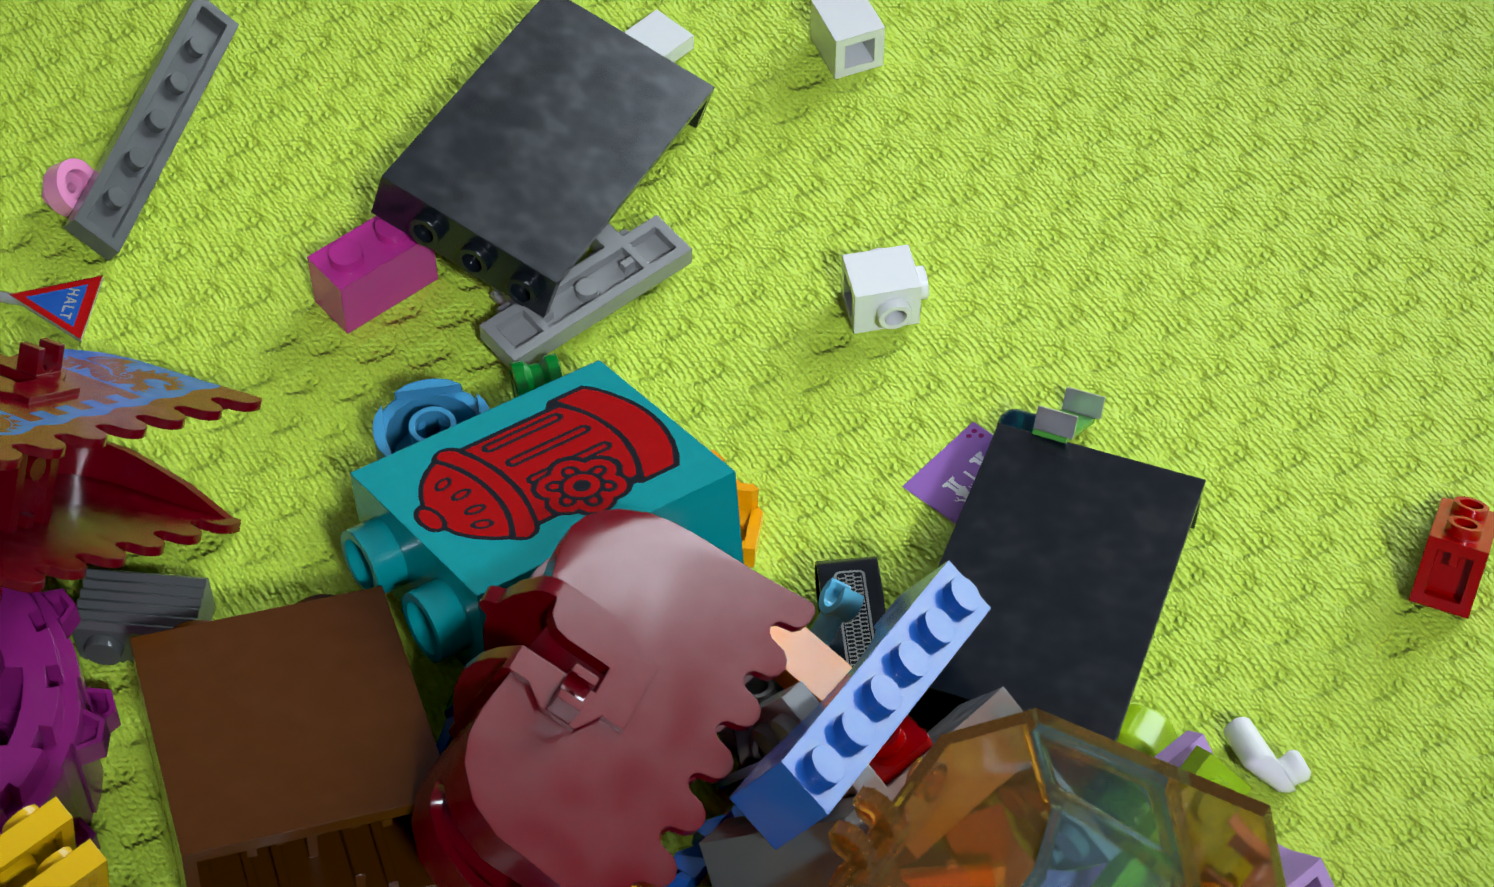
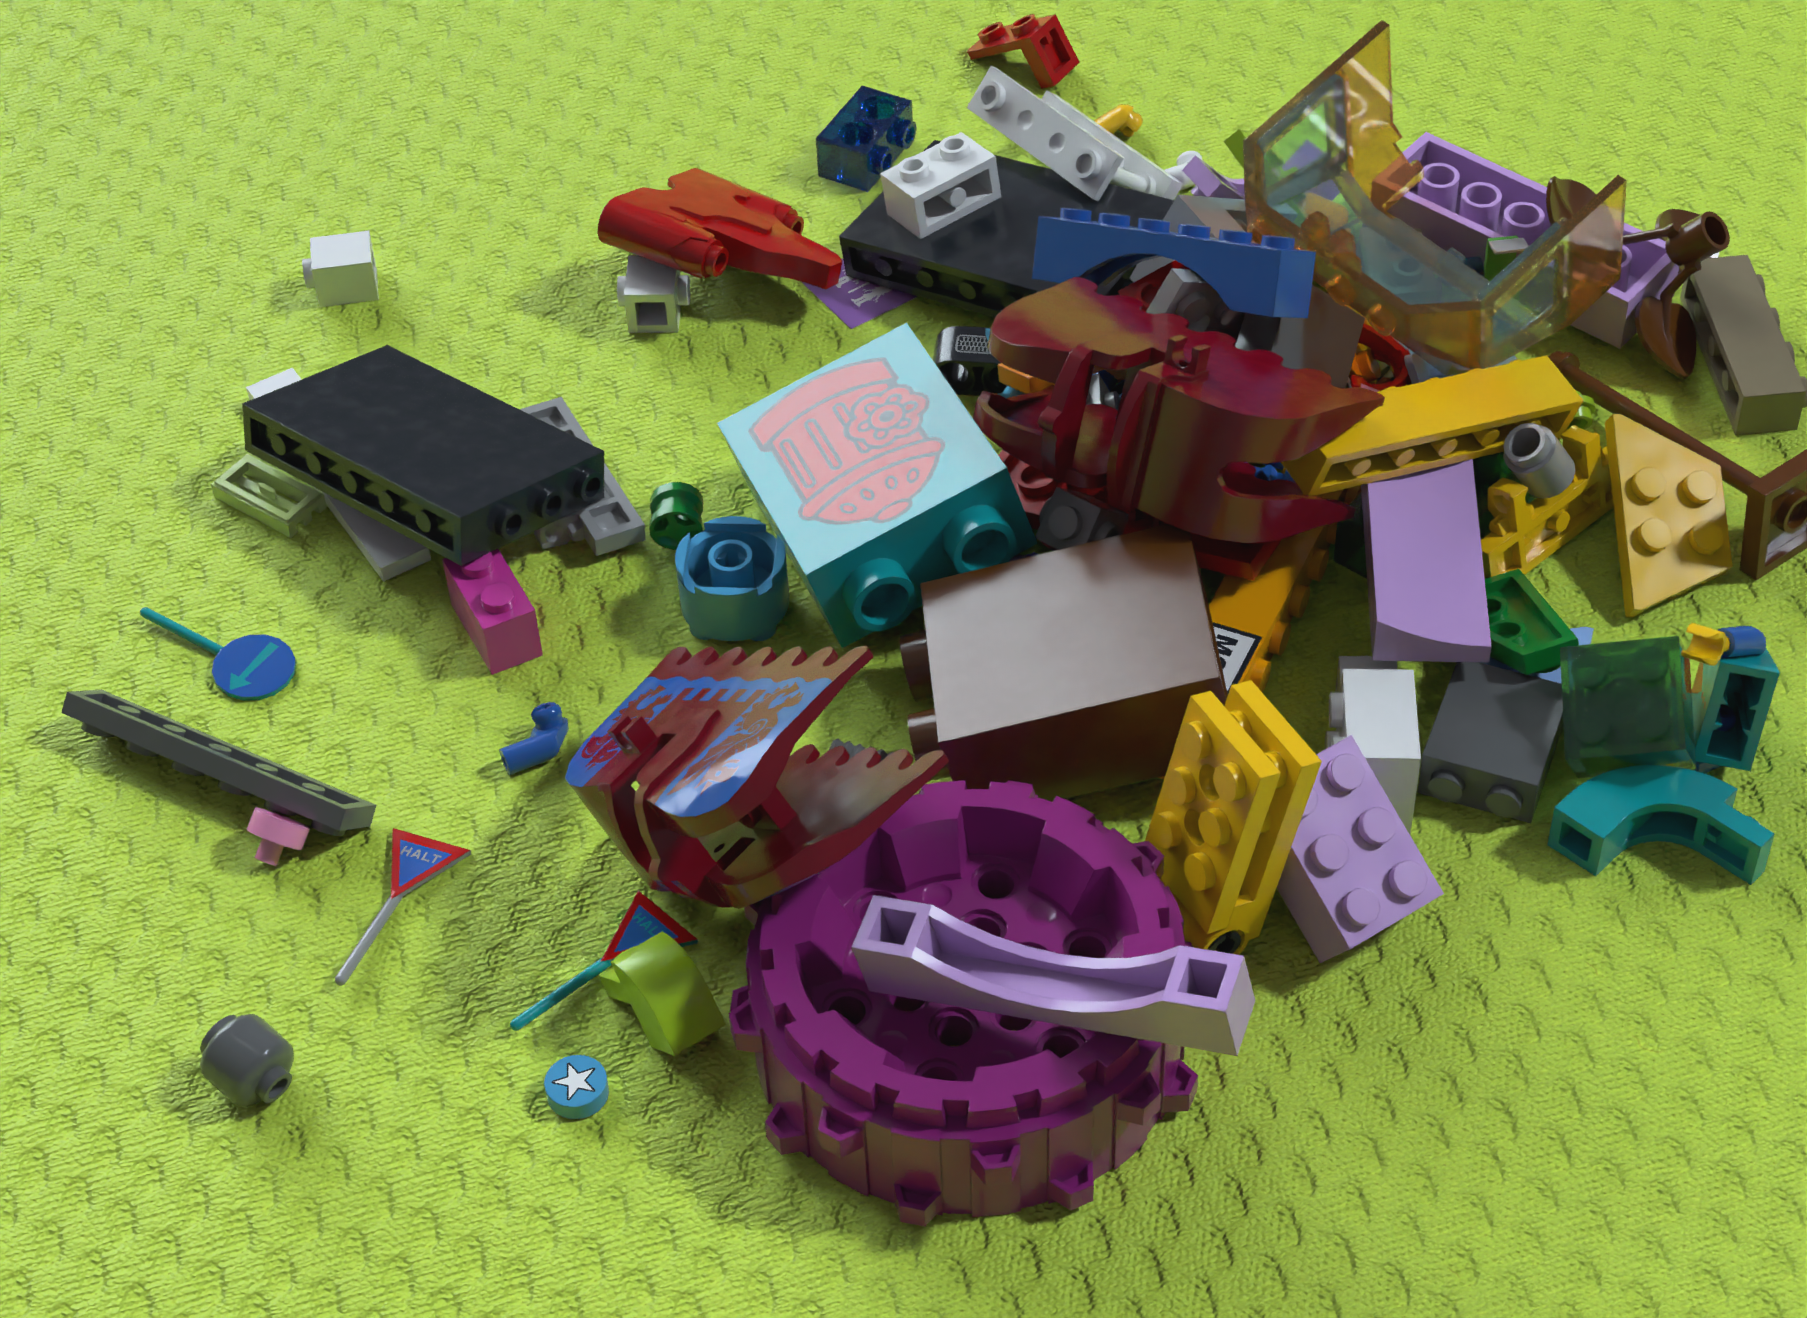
camera: 75 degrees left, 5 degrees down
(212, 358) = (543, 742): none -> blue arm
(299, 120) = (245, 667): none -> blue piece
(976, 311) = (716, 224): none -> red rock
(1076, 415) = (817, 215): flat silver piece -> none
(1076, 487) = (941, 185): none -> white brick
(1215, 422) = (865, 138): none -> brick
(1276, 640) = (1067, 139): none -> white fence
(1338, 665) = (1121, 119): none -> yellow arm

